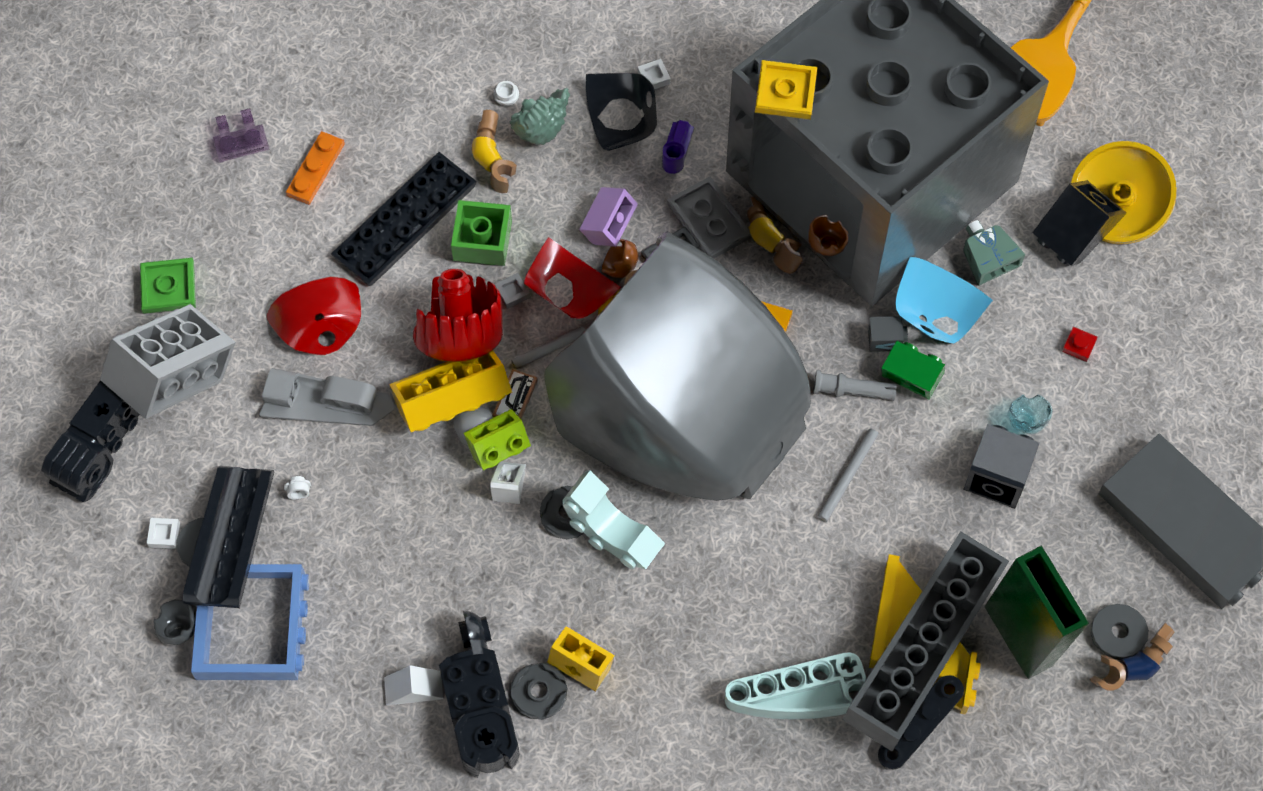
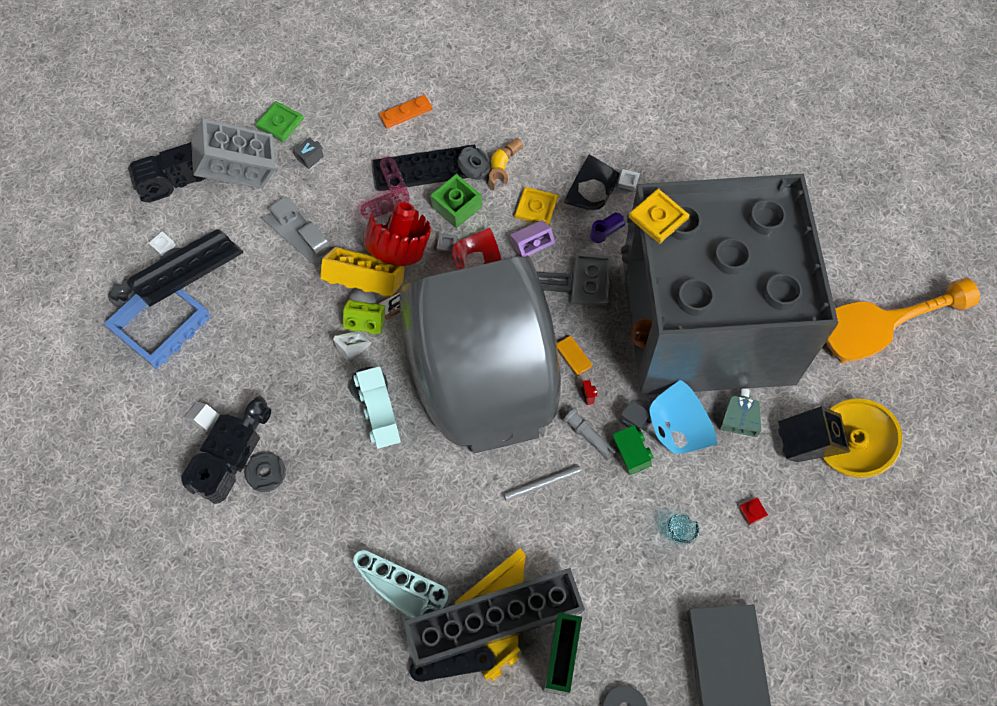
camera: 40 degrees right, 0 degrees up
(241, 142) = (382, 75): clear purple plate -> none
(245, 298) = (309, 152): none -> dark grey brick
(295, 311) = (347, 182): red piece -> none
(297, 484) = (245, 268): white plate -> none
(395, 271) = (394, 191): none -> clear pink beam
(467, 184) = (471, 170): none -> dark grey tile
(506, 93) = (538, 137): white plate -> none
(541, 119) = (543, 161): sand green piece -> none
(574, 176) = (536, 206): none -> yellow tile
(580, 658) = (298, 471): yellow brick -> none
(771, 239) = (613, 312): piece -> none
(815, 343) = (589, 392): none -> red plate
(1001, 465) = (637, 546): slope -> none

